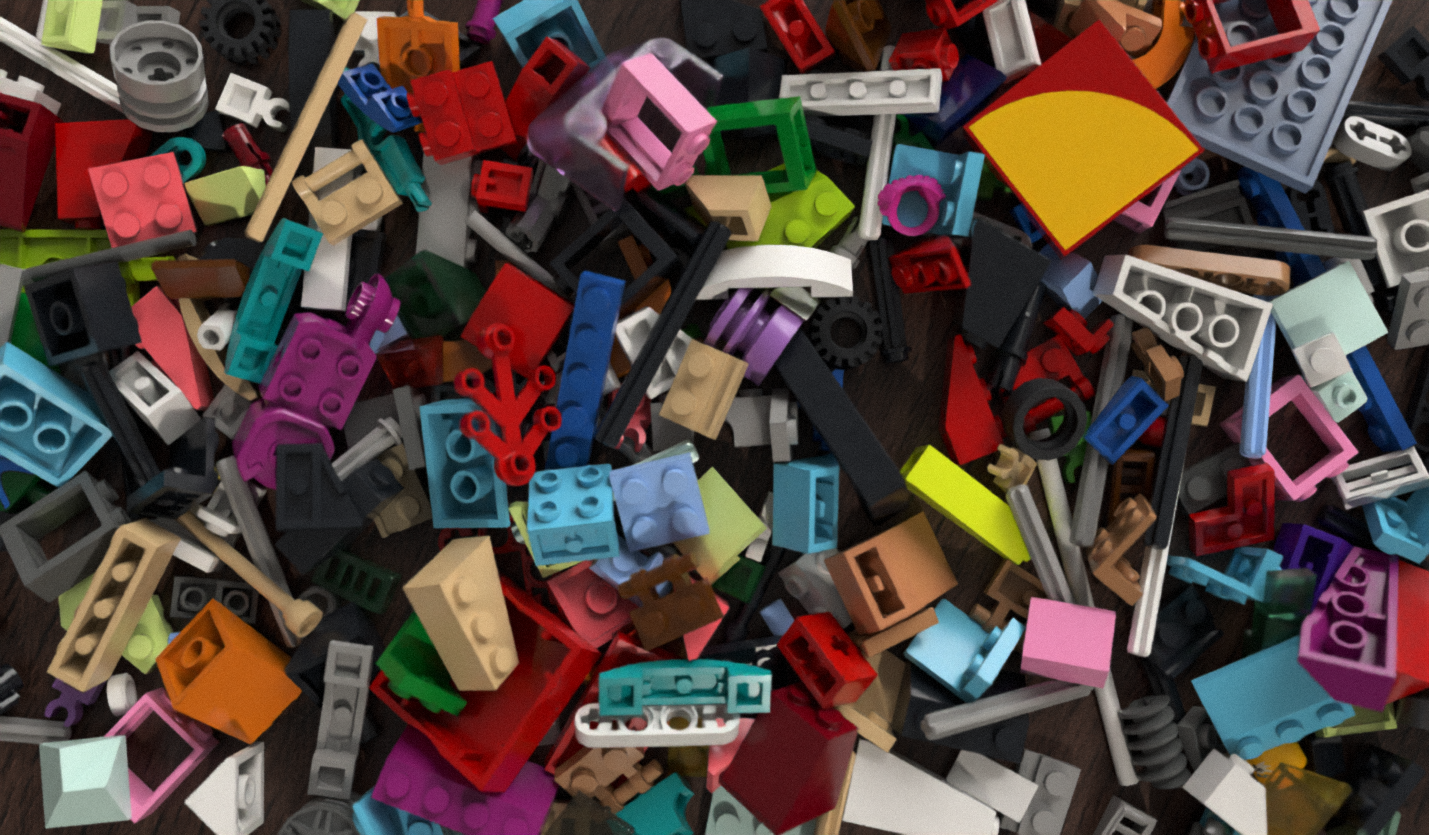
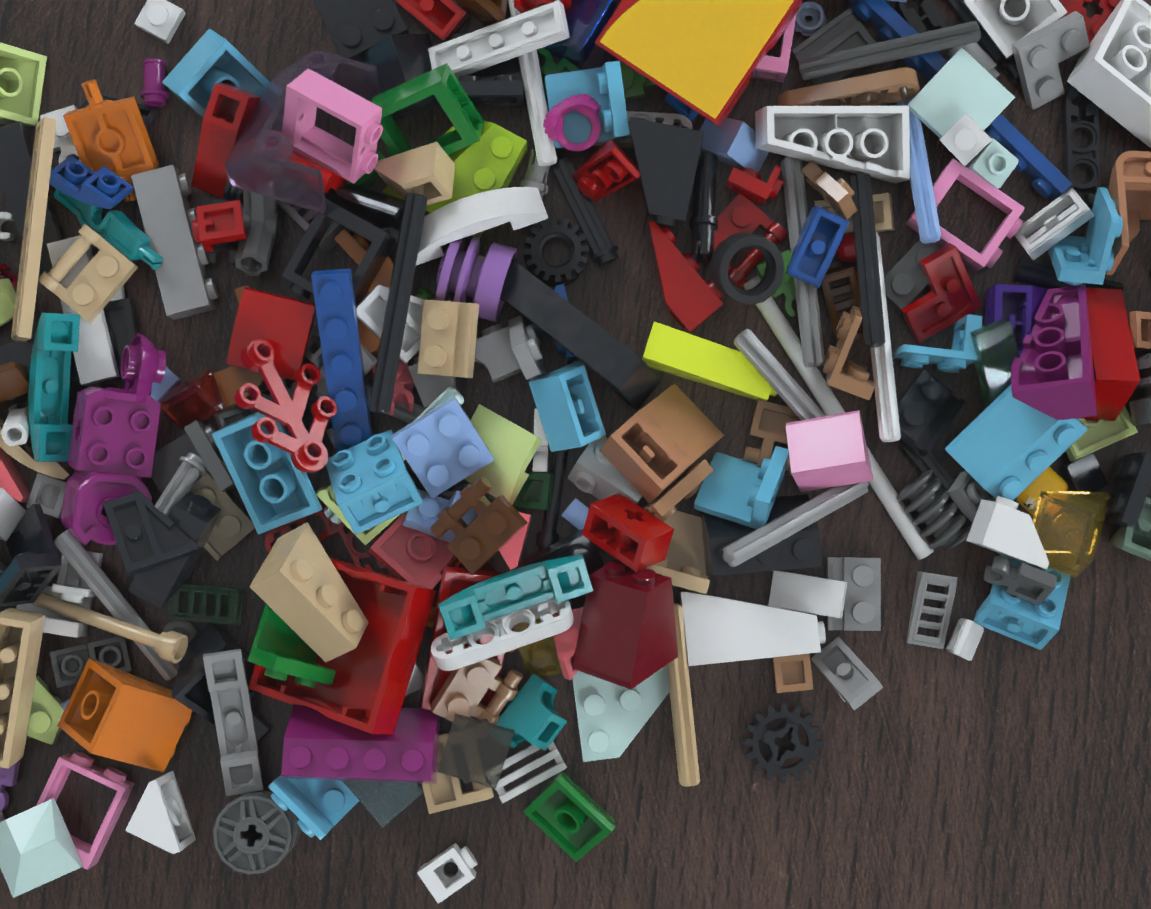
camera: 10 degrees left, 0 degrees up
(121, 693) = (37, 767): white tile -> none
(434, 295) = (192, 336): clear green slope -> none
(461, 113) = (163, 172): red plate -> none
(513, 252) = (247, 277): light grey bar -> none
(796, 300) = (503, 237): white sticker -> none
(1012, 468) = (735, 318): tan plate -> none

